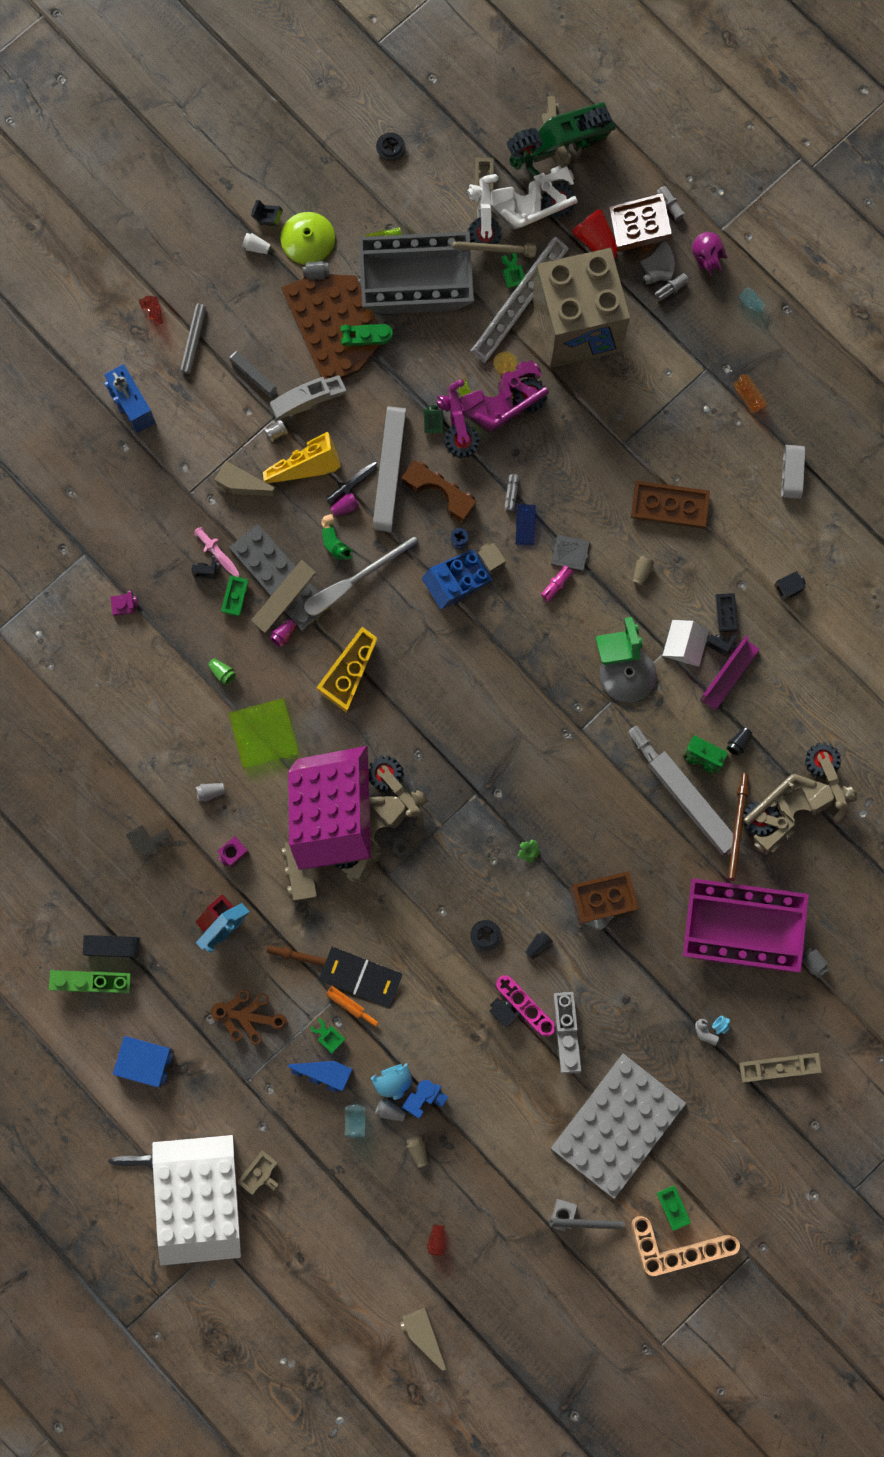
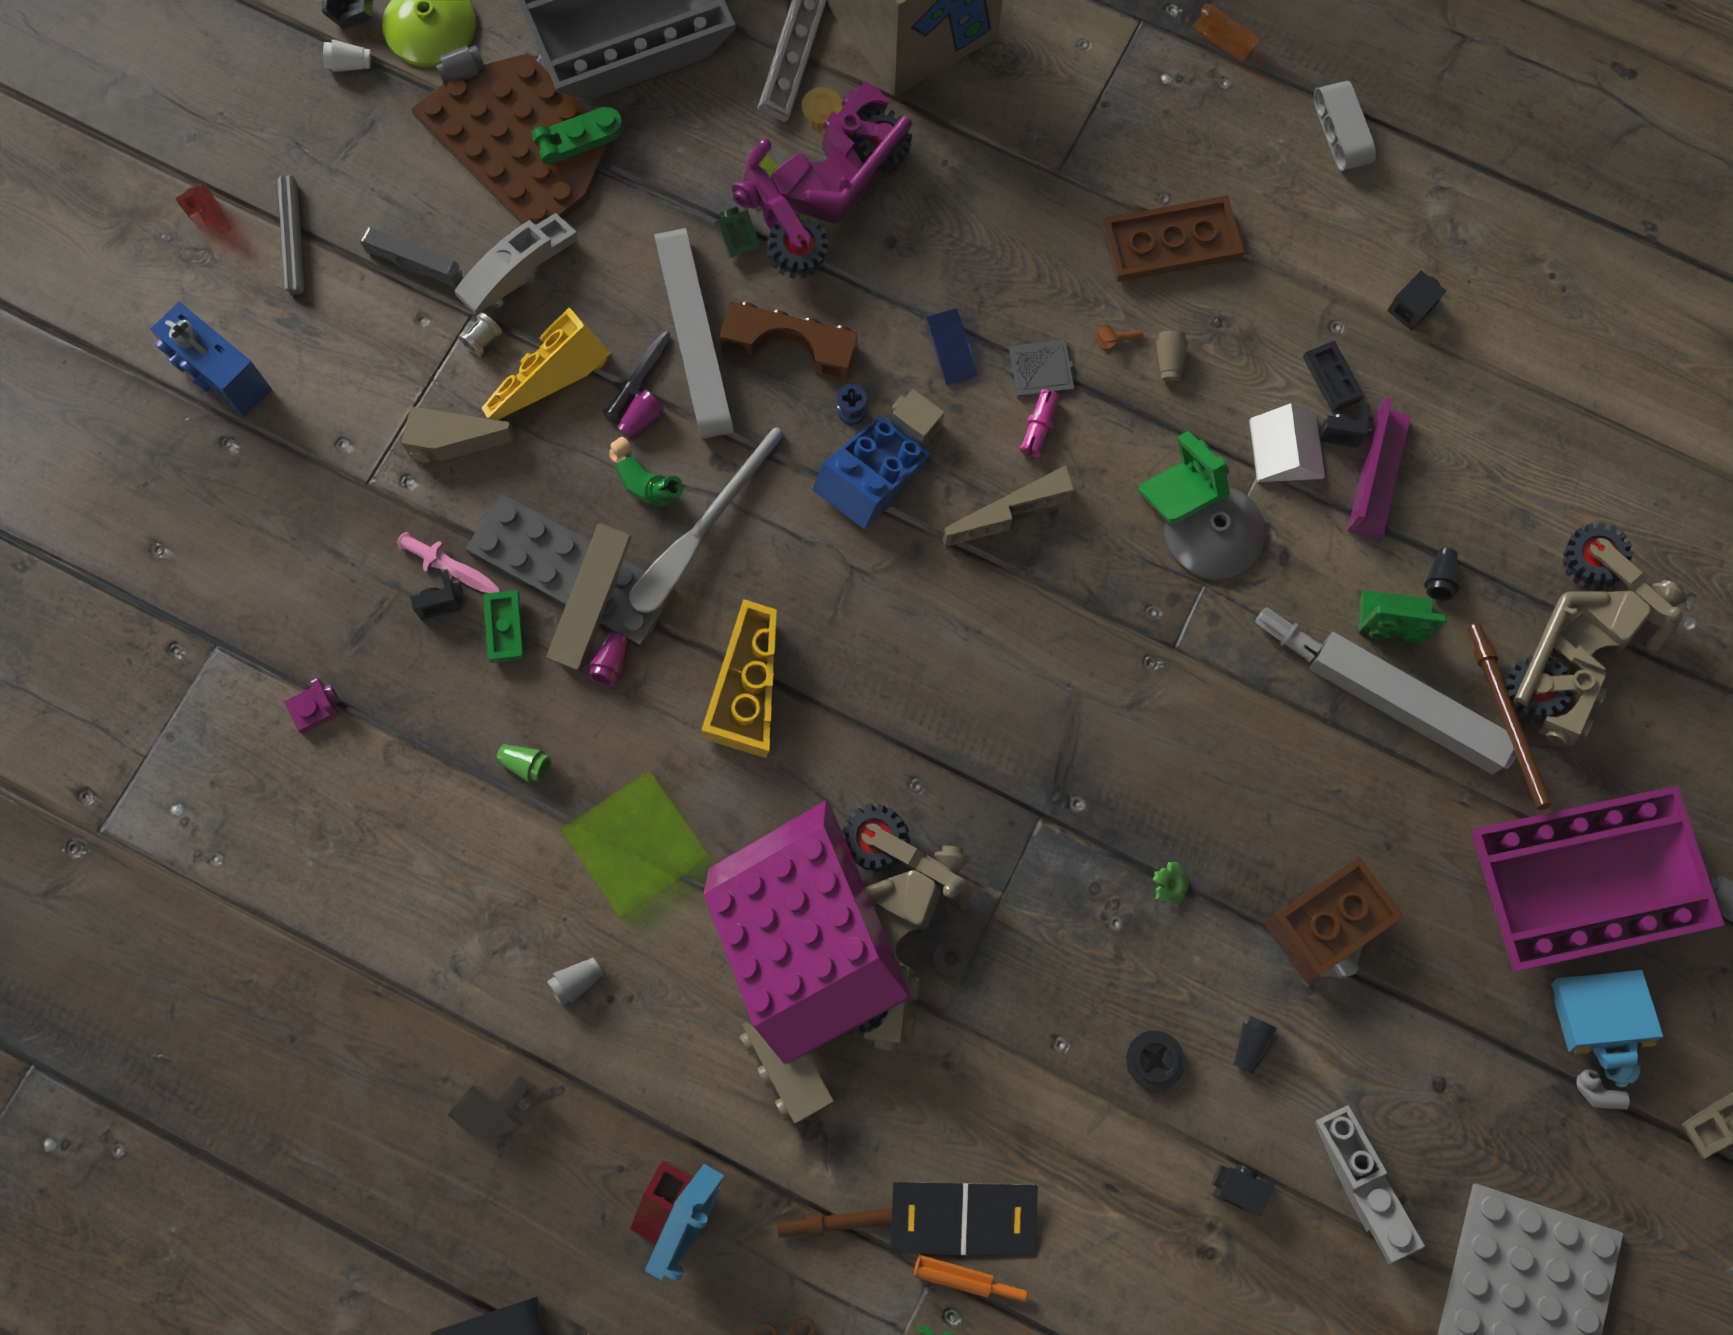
camera: 20 degrees left, 5 degrees down
(236, 844) = (653, 1058): magenta brick -> none
(511, 492) = (909, 304): light grey axle -> none
(512, 627) = (997, 517): none -> dark tan slope
(528, 1003) = (1272, 1163): dark pink beam -> none
(612, 549) = (1108, 339): none -> dark orange hand
(723, 994) = (1605, 1014): none -> dark azure piece

